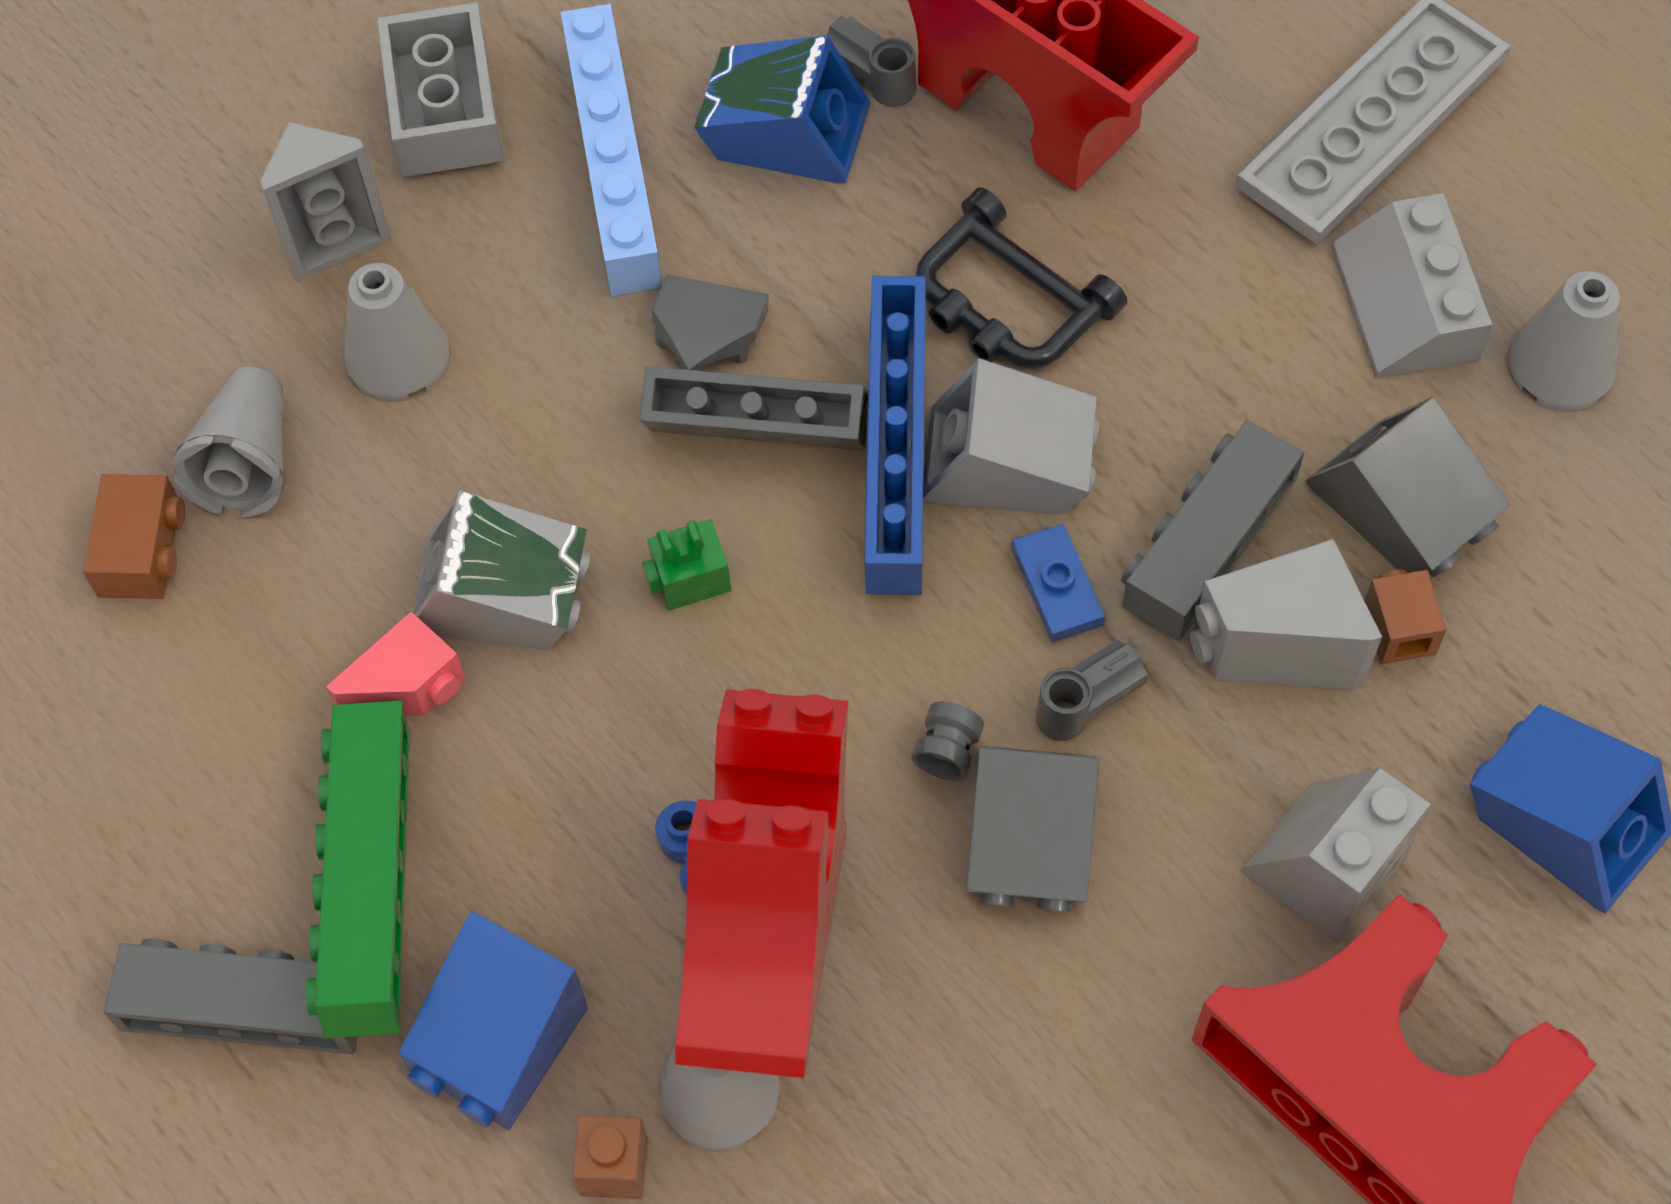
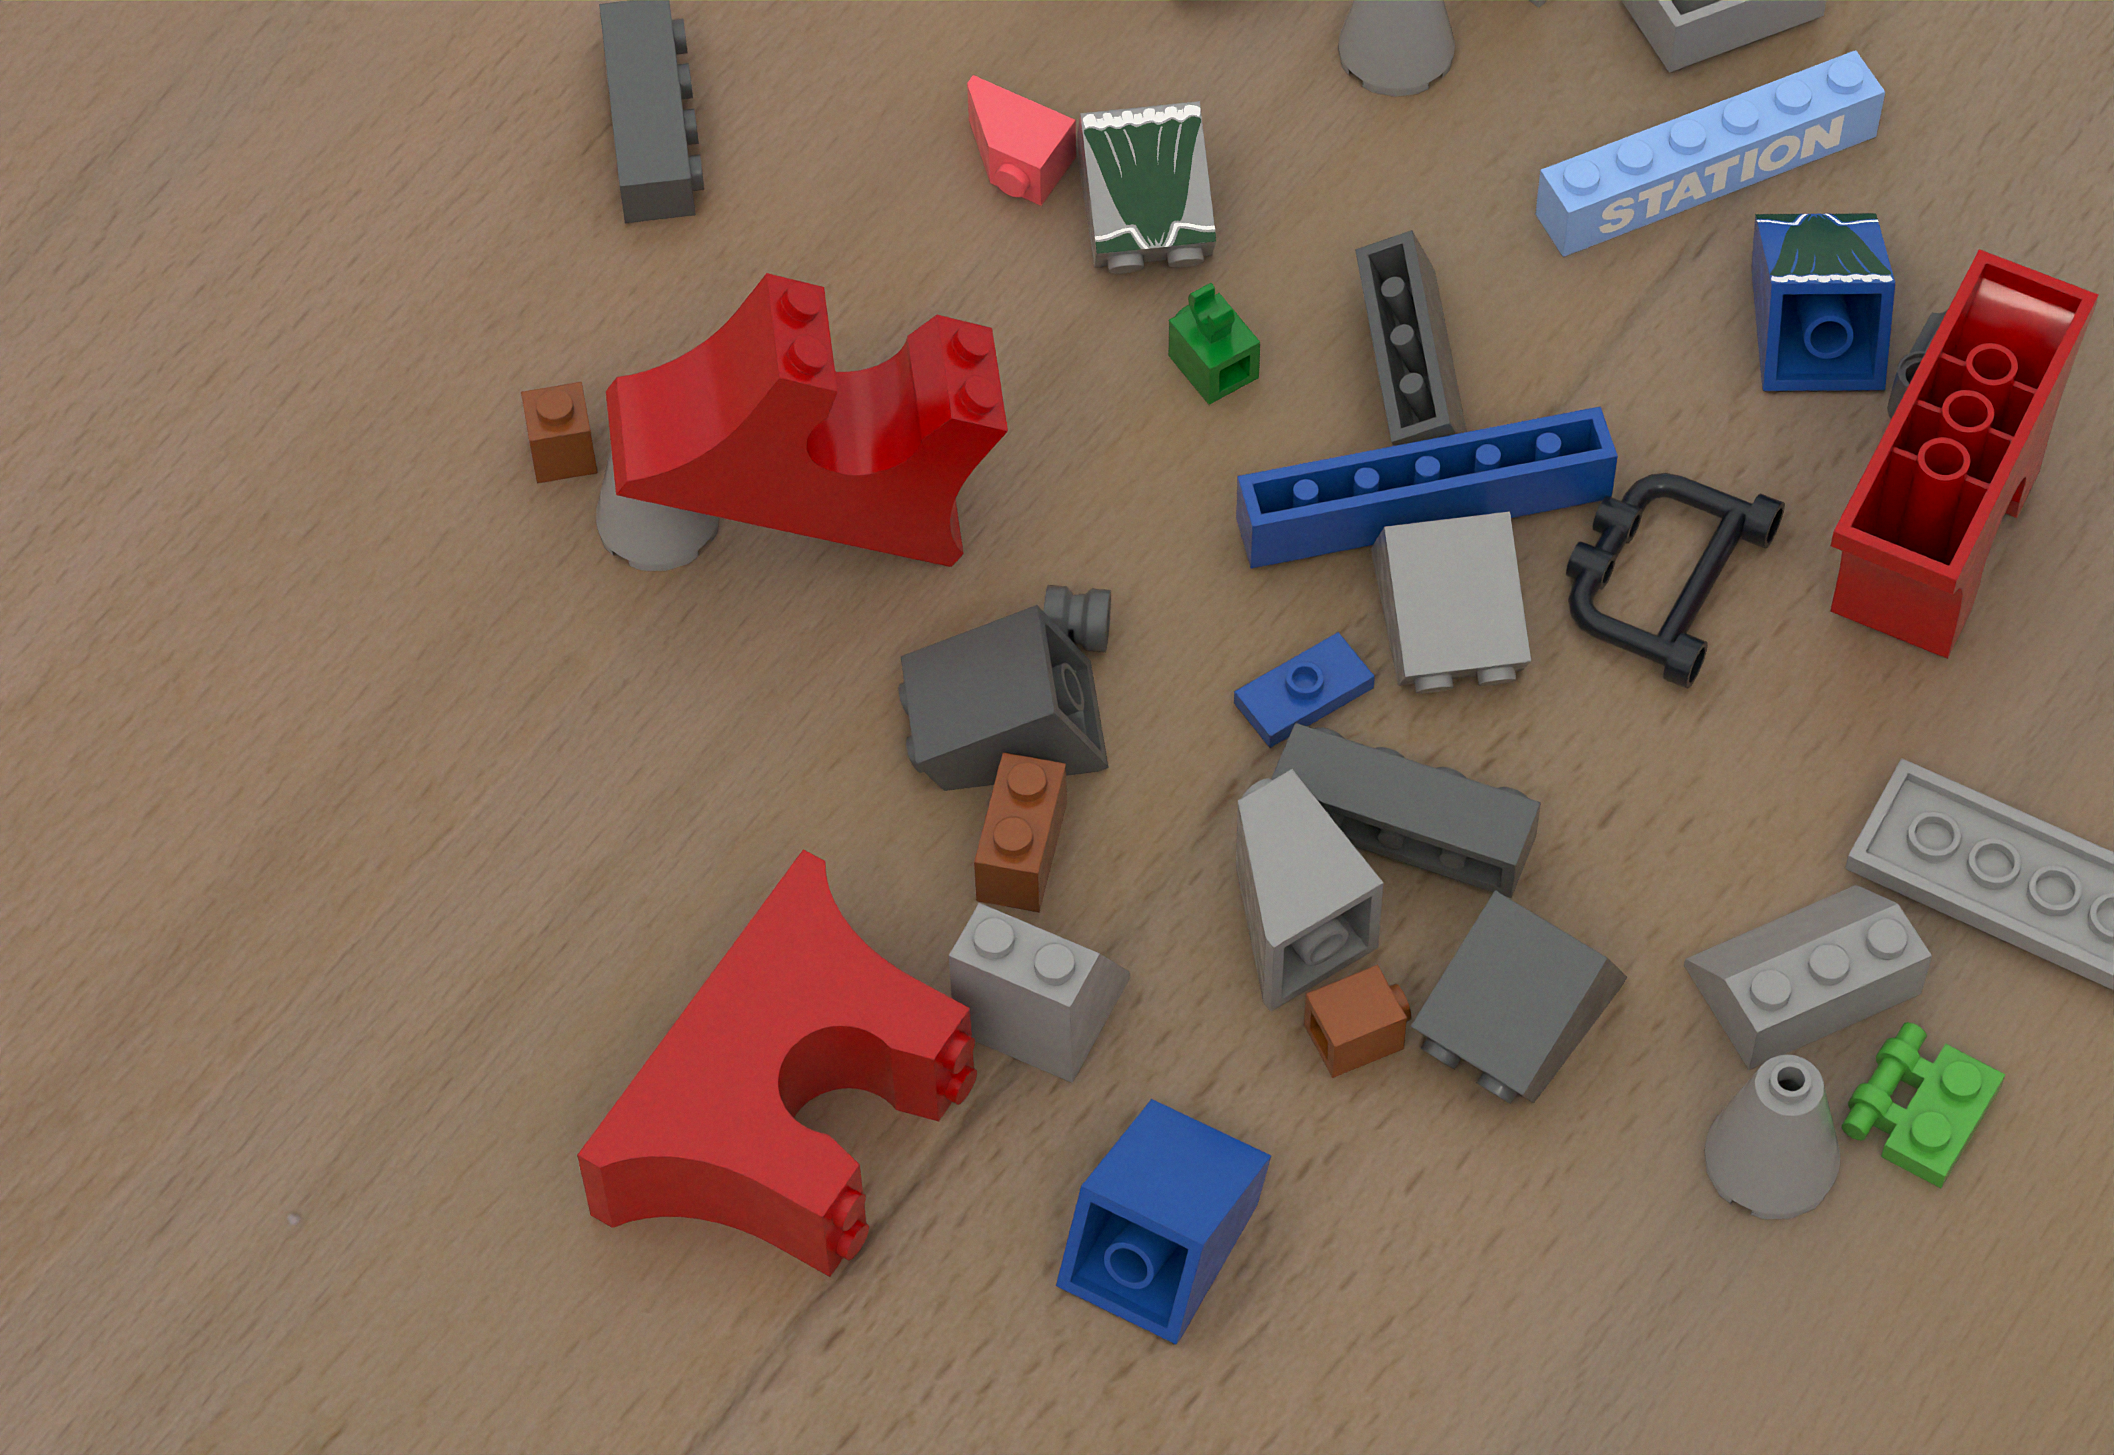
camera: 75 degrees right, 5 degrees down
(363, 871) = (790, 152): green brick -> none
(492, 1023) = (660, 295): blue slope -> none
(706, 321) = (1523, 298): dark grey slope -> none
(1090, 688) = (1177, 735): dark grey piece -> none
(1166, 833) = (1020, 832): none -> dark orange brick
(1542, 238) = (1941, 1115): none -> bright green plate

